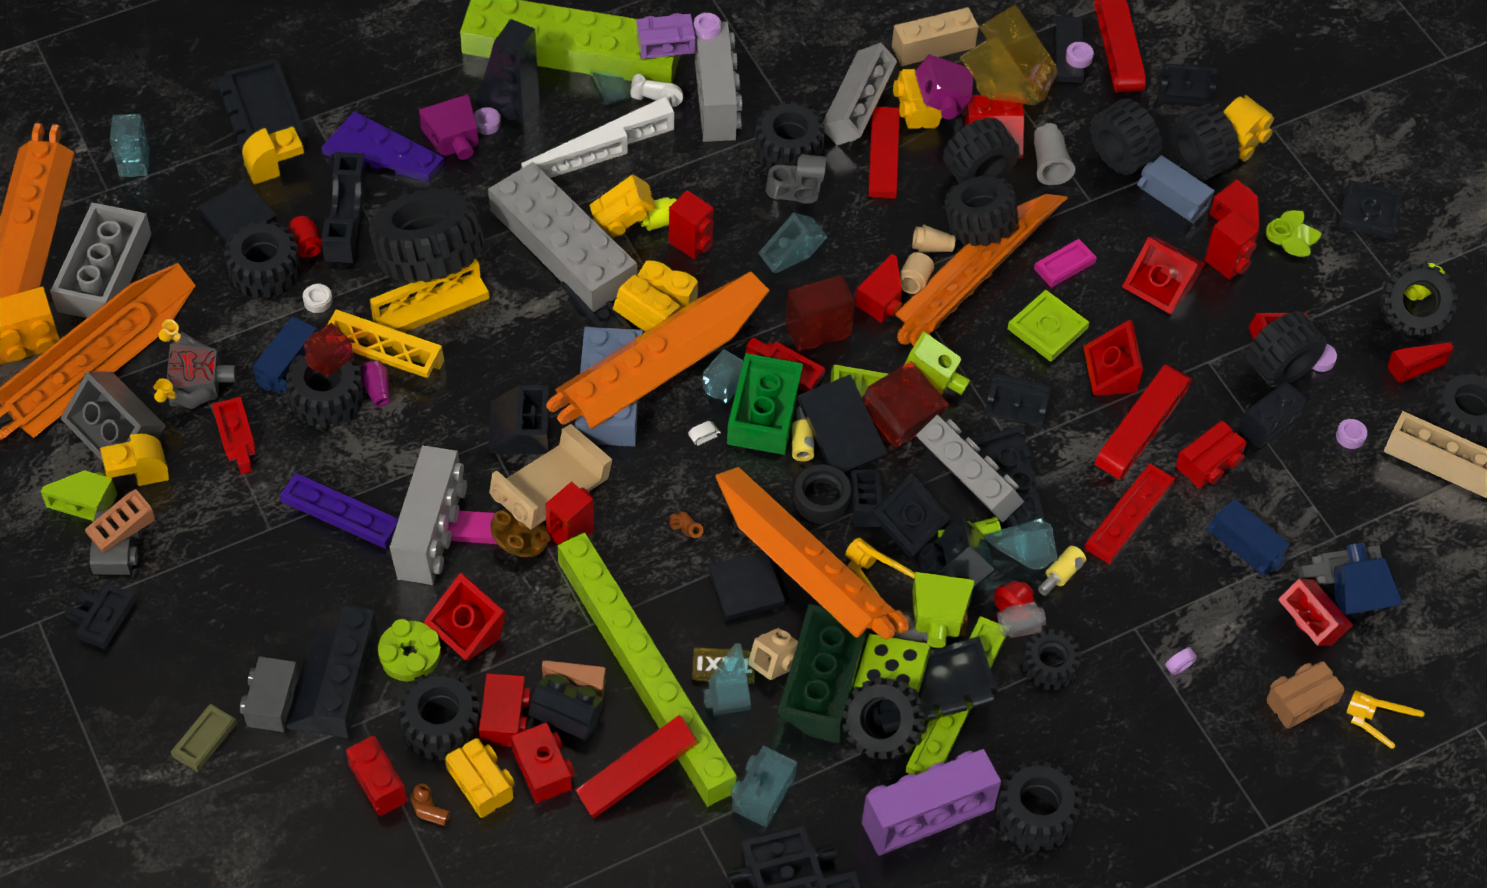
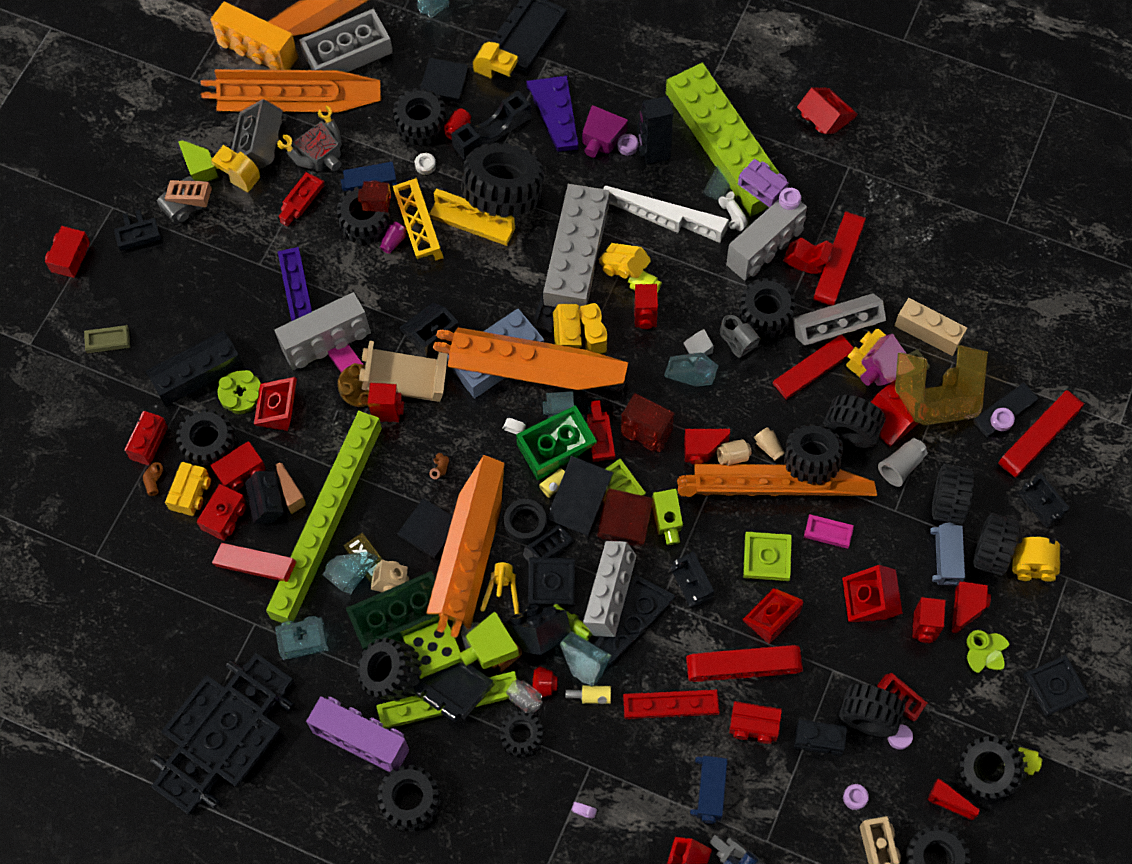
camera: 55 degrees right, 10 degrees up
(51, 699) = (67, 251): none -> red brick
(270, 694) = (154, 347): dark grey brick -> none
(768, 71) = (808, 257): none -> red brick
(770, 218) = (699, 343): none -> light grey slope
(793, 51) = (842, 253): none -> red beam

